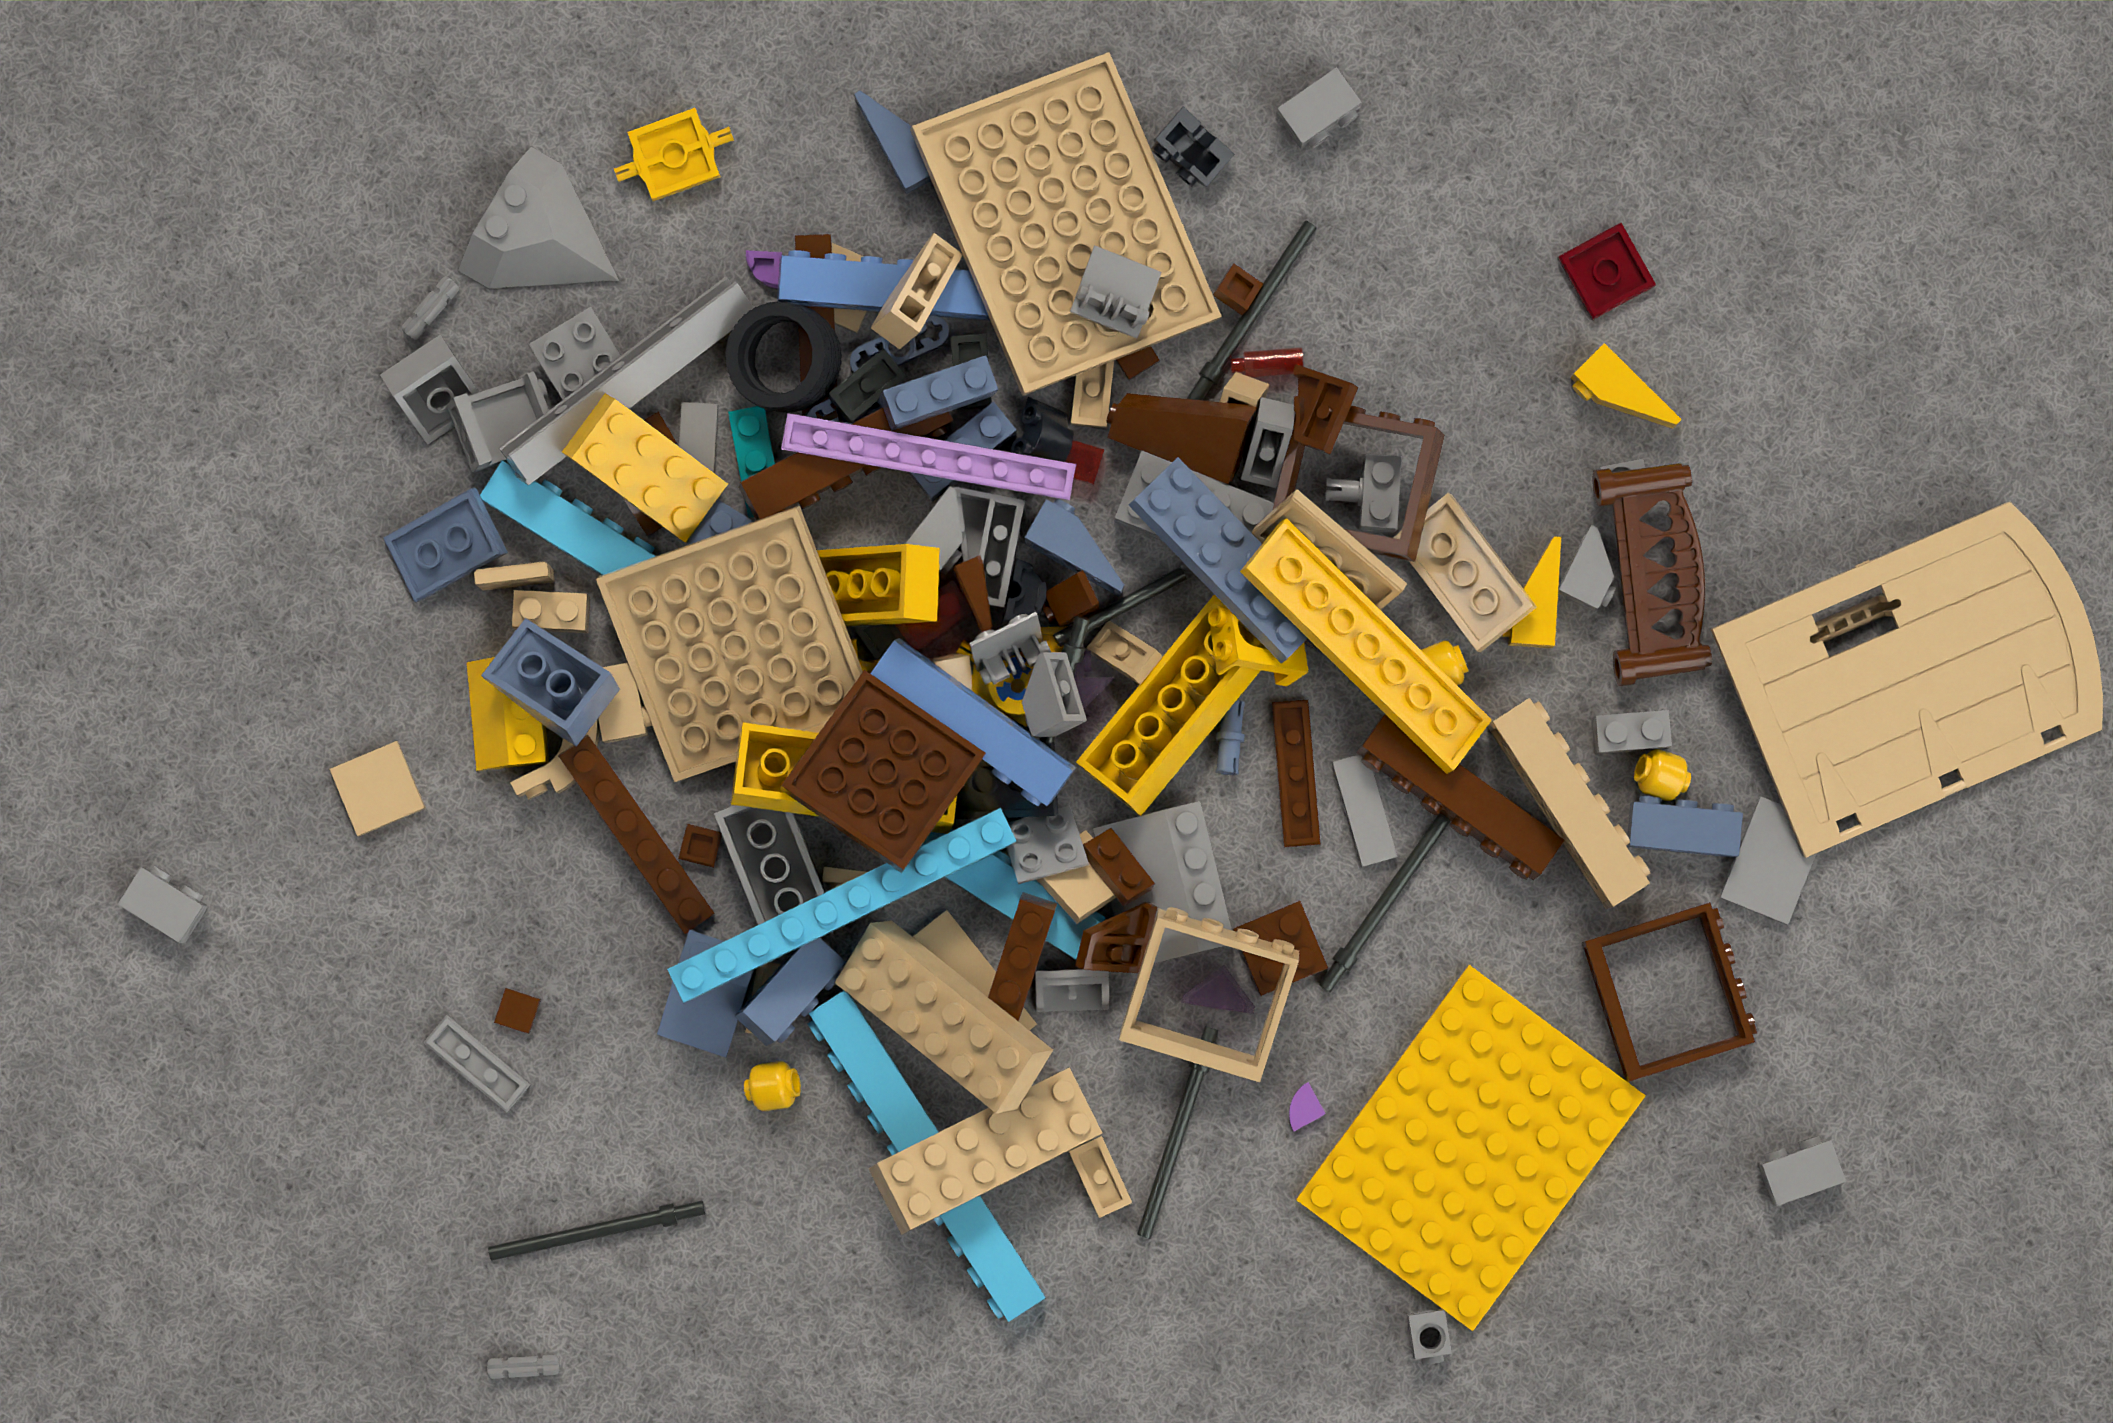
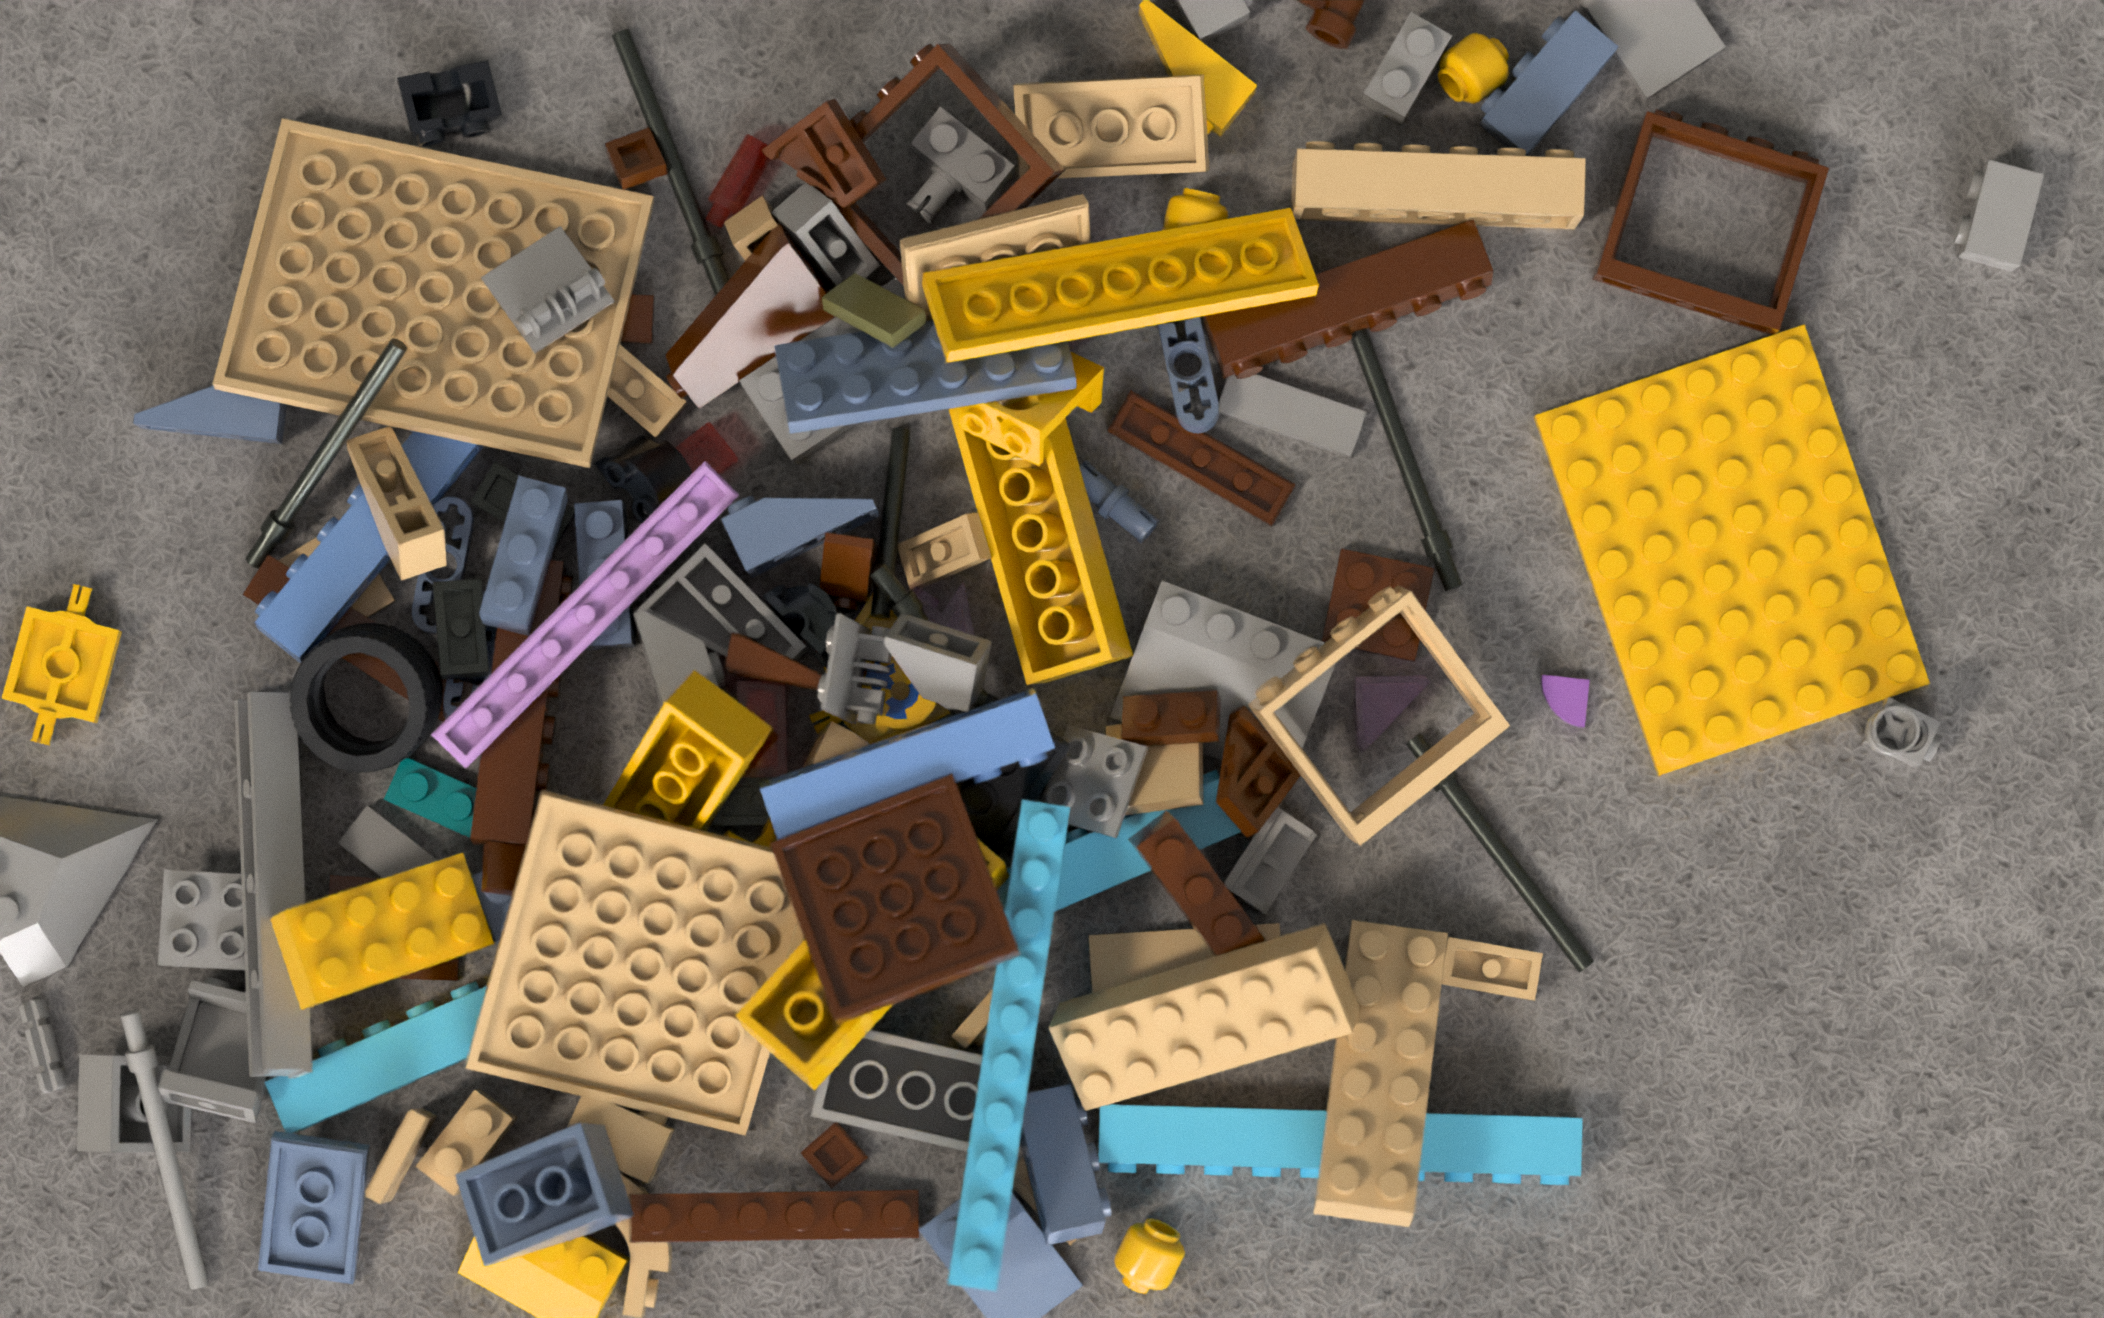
camera: 55 degrees left, 0 degrees up
(462, 377) = (142, 1060): none -> light grey bar
(735, 513) = (501, 867): none -> reddish brown tile
(764, 266) = (253, 650): medium lavender tile -> none
(856, 227) = (280, 522): none -> pearl dark grey bar
(1243, 503) = (874, 310): none -> olive tile
(1338, 749) = (1206, 394): none -> sand blue beam
(1428, 1328) = (1901, 728): none -> light grey wheel

